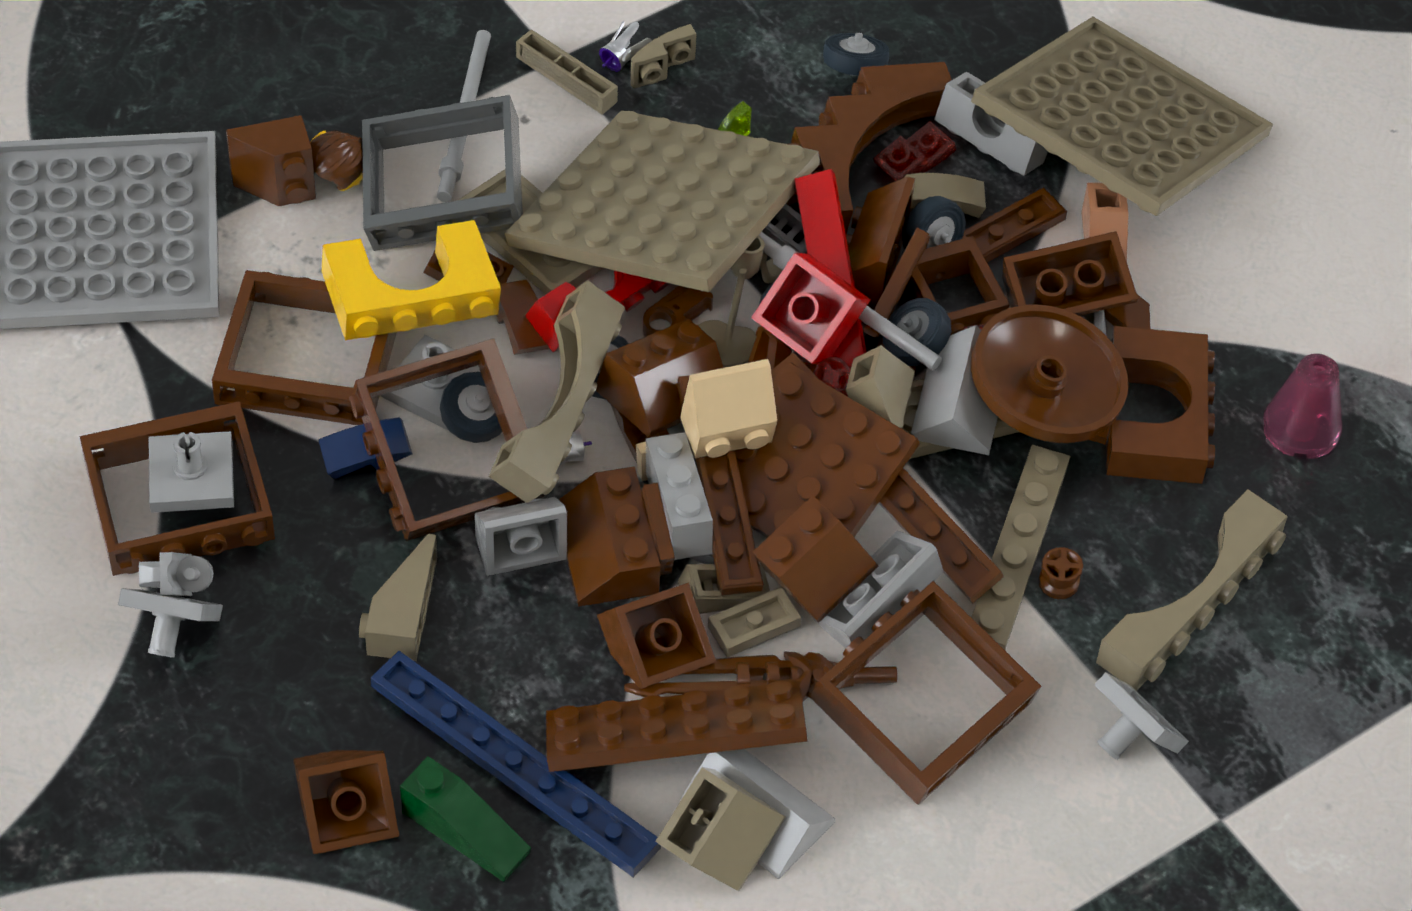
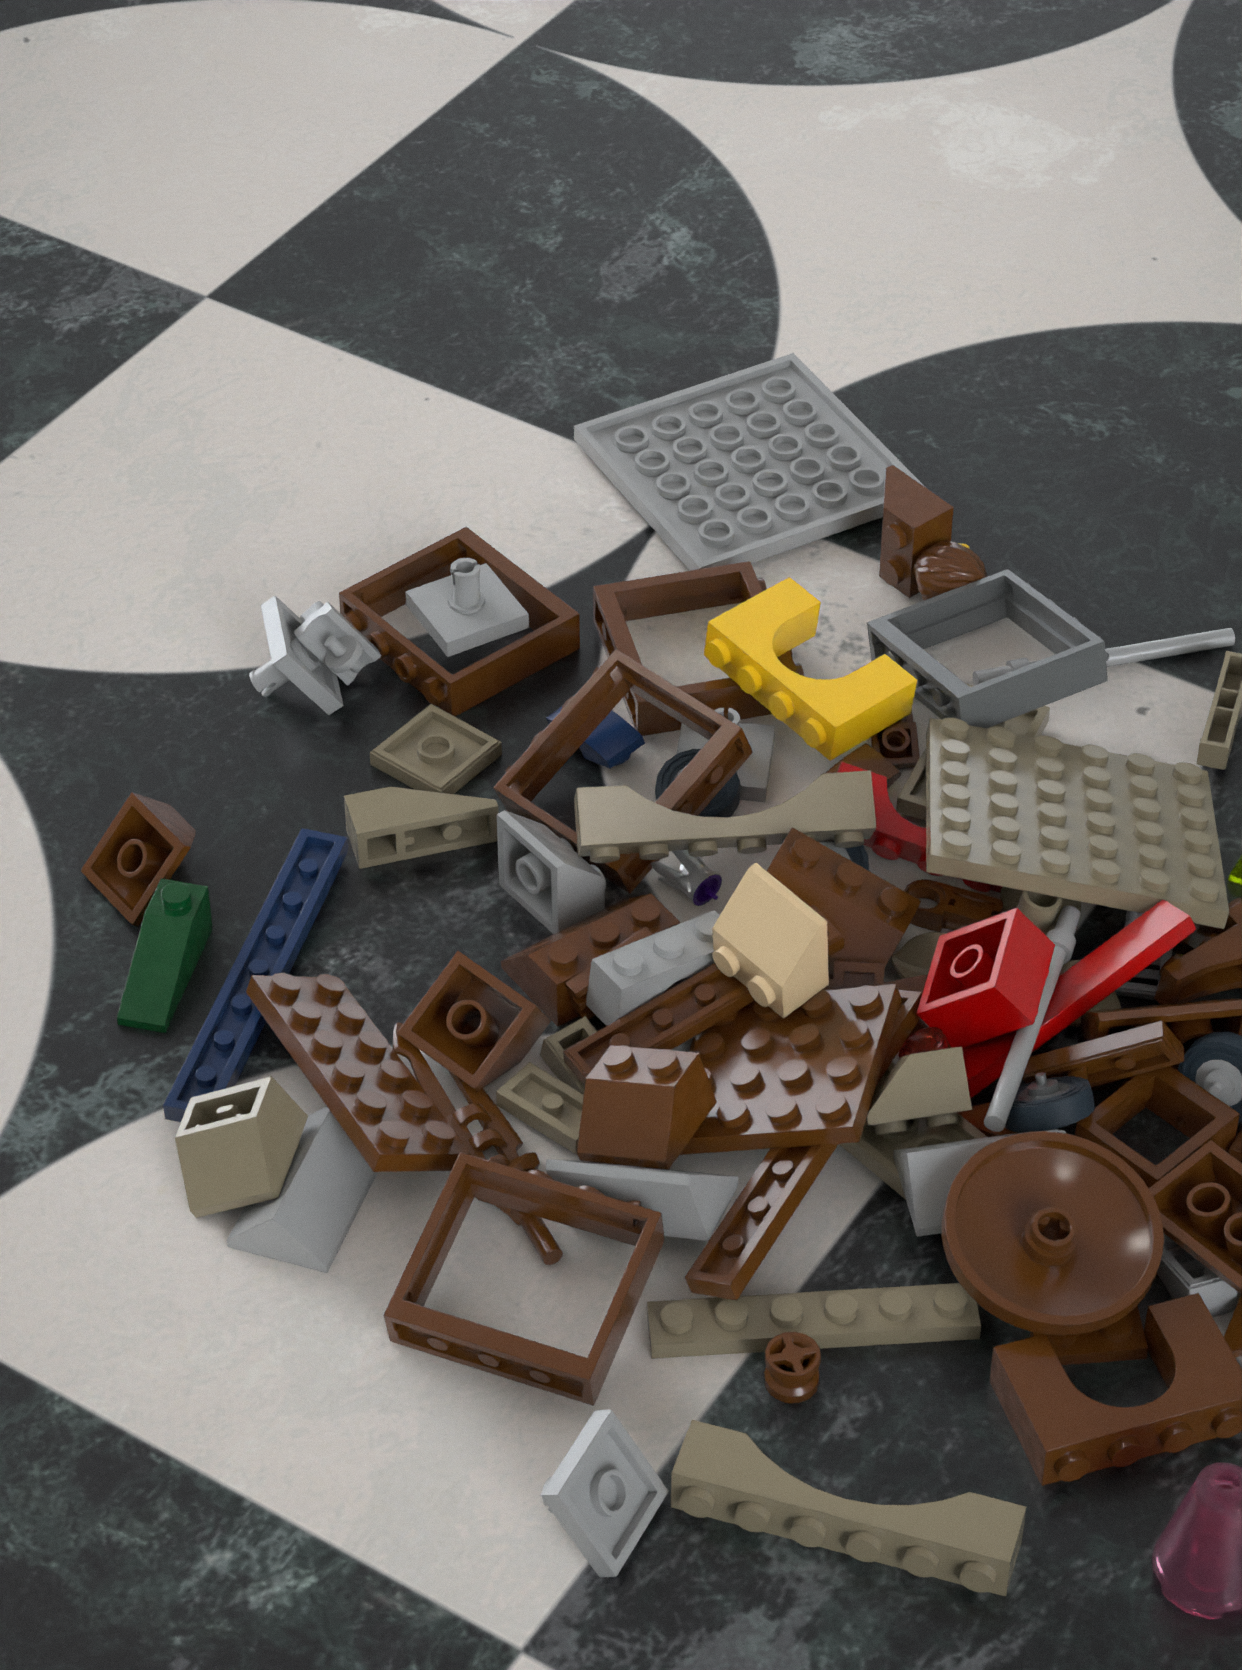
camera: 70 degrees right, 10 degrees down
(317, 562) = (436, 752): none -> dark tan tile

